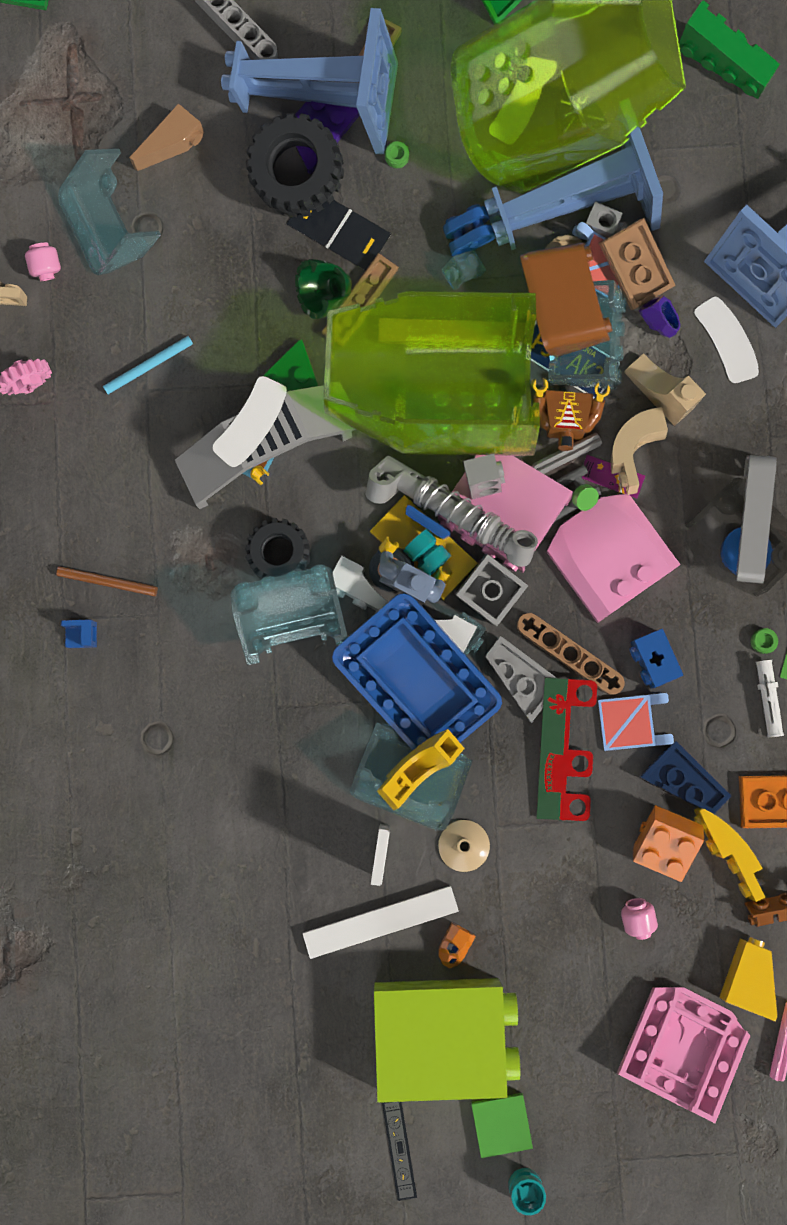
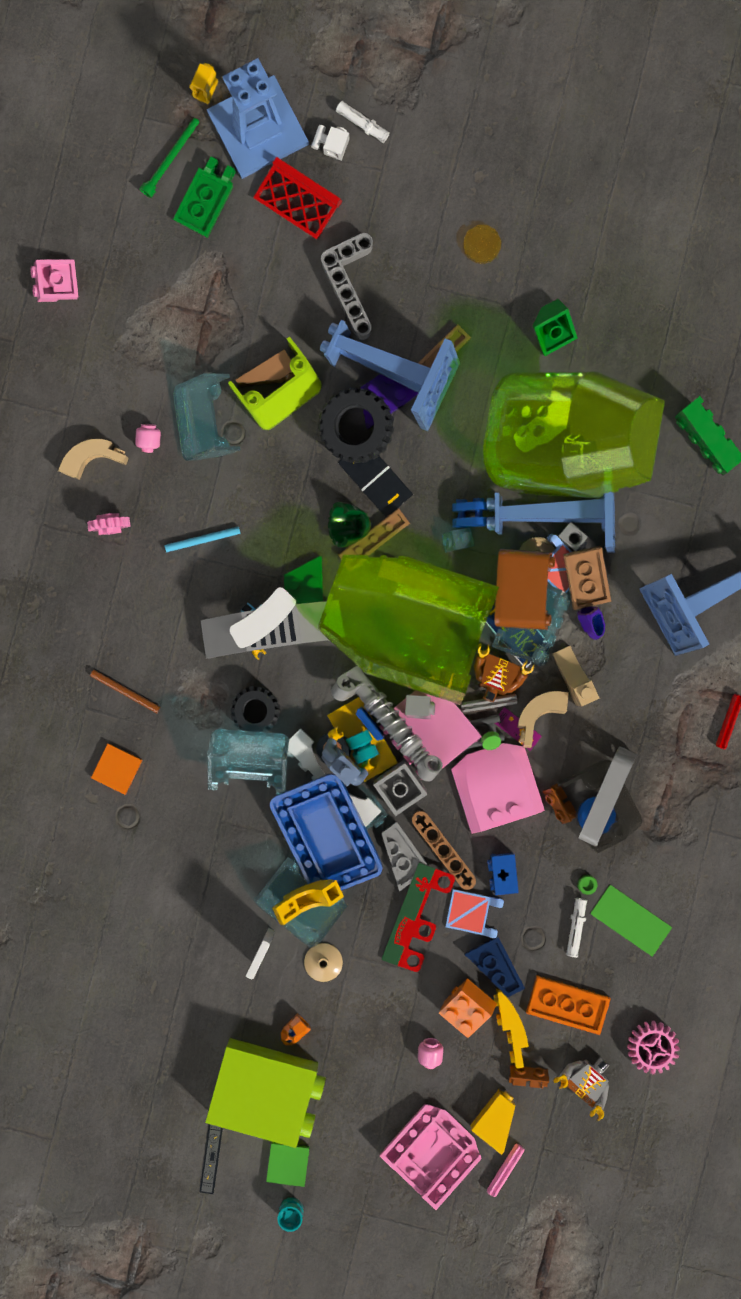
camera: 20 degrees right, 5 degrees up
(80, 633) = (95, 724): blue panel -> none
(125, 681) = (116, 769): none -> orange tile
(198, 163) = (287, 398): none -> lime windscreen
(380, 922) = (247, 997): white tile -> none
(397, 154) = (436, 435): bright green tile -> none
(703, 558) = (563, 811): none -> dark orange hinge
(729, 340) = (637, 653): white sticker -> none

